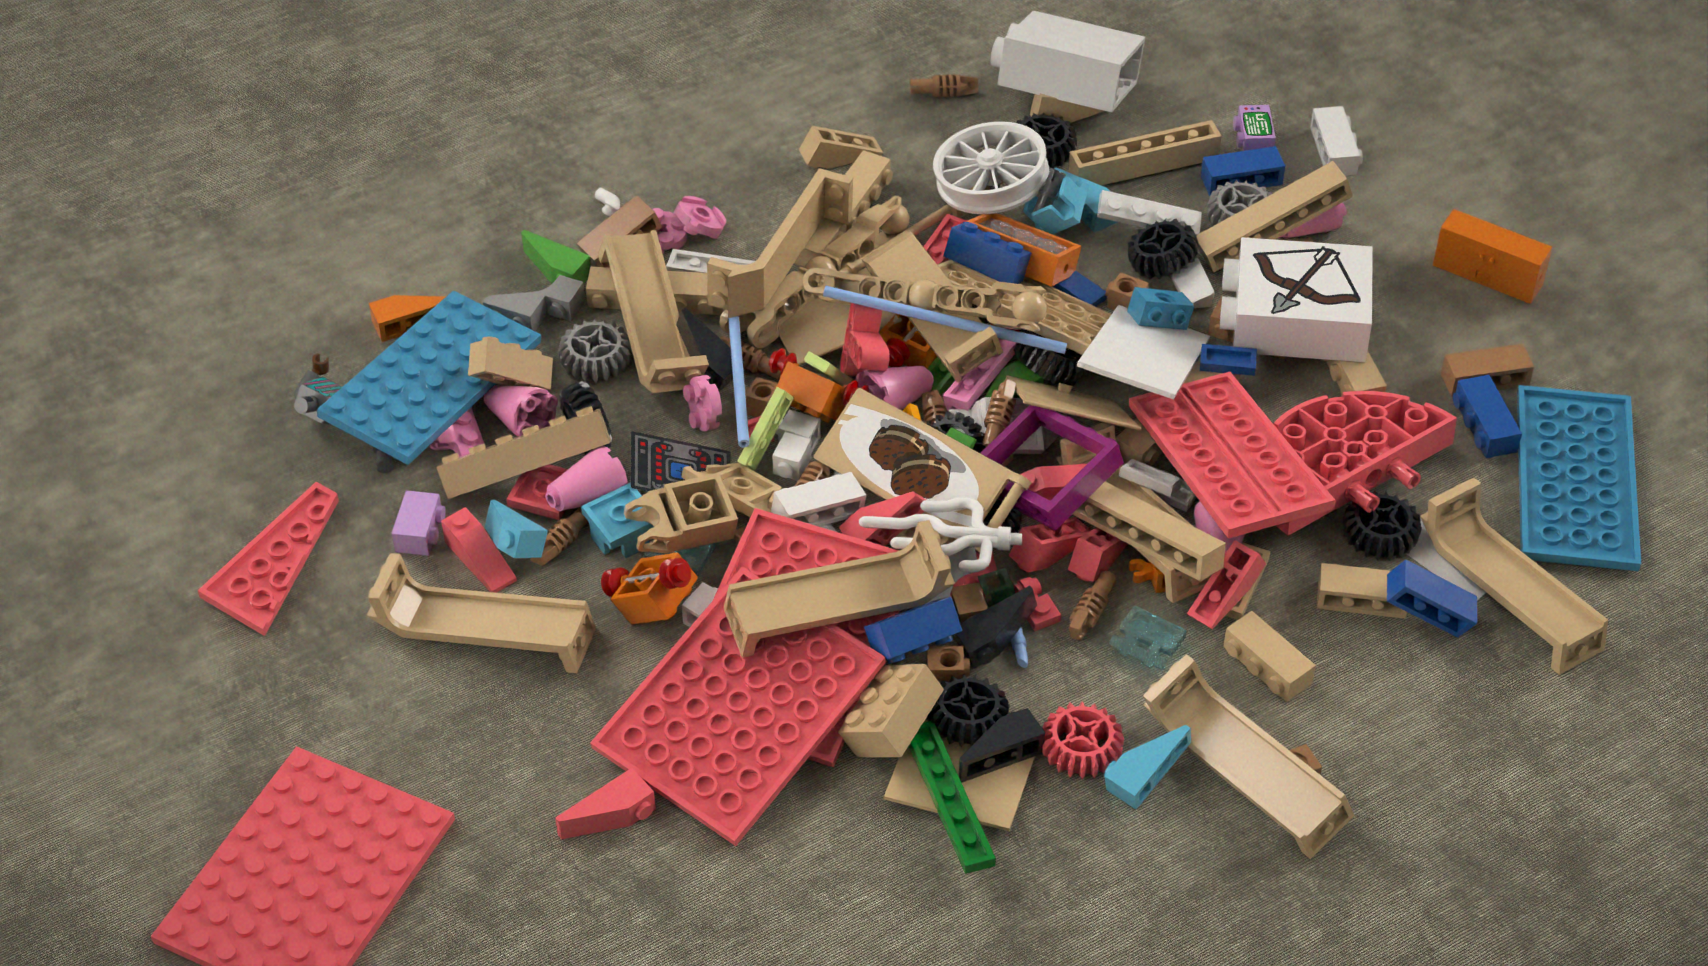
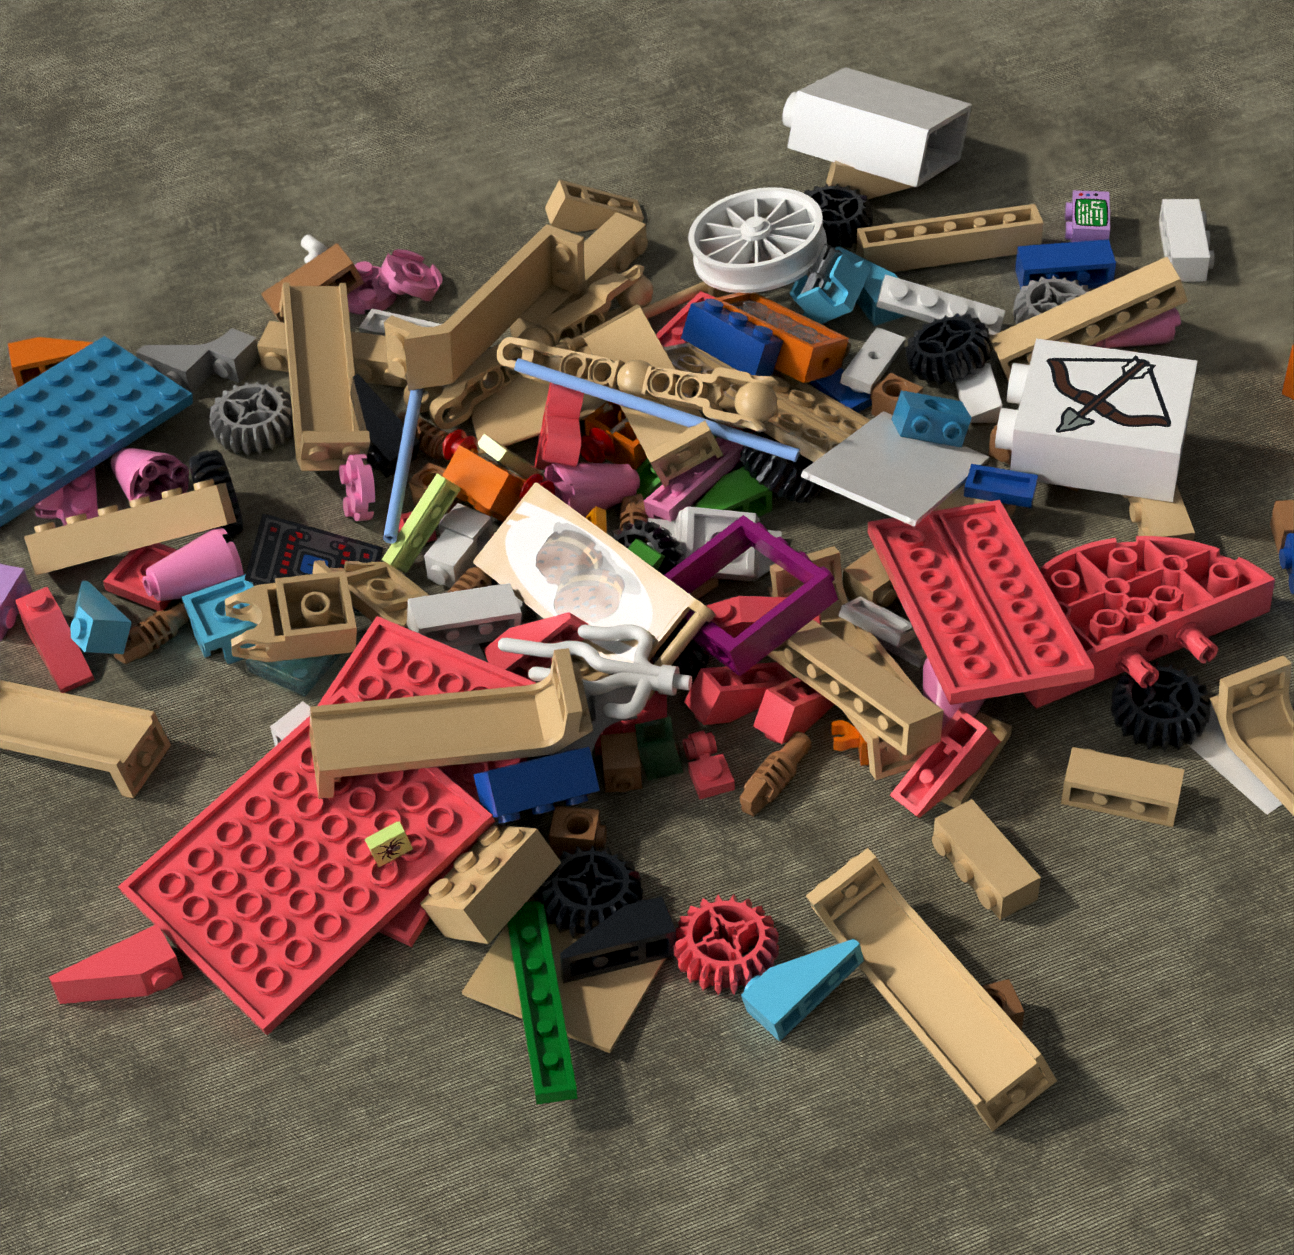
camera: 10 degrees right, 0 degrees up
(509, 364) = (141, 424): tan brick -> none
(555, 259) = (236, 309): bright green slope -> none
(651, 588) = (238, 704): orange brick -> none
(809, 687) = (388, 844): none -> yellowish green tile
(945, 85) = (732, 147): medium nougat hinge -> none
(992, 629) = (643, 792): black slope -> none
(999, 411) = (702, 523): medium nougat hinge -> none
(1019, 646) = (675, 810): light blue piece -> none
(1072, 402) = (794, 521): tan piece -> none
(1102, 263) = (872, 360): none -> white tile
(1151, 631) = (842, 812): clear light blue plate -> none
(1431, 598) = (1206, 805): blue brick -> none

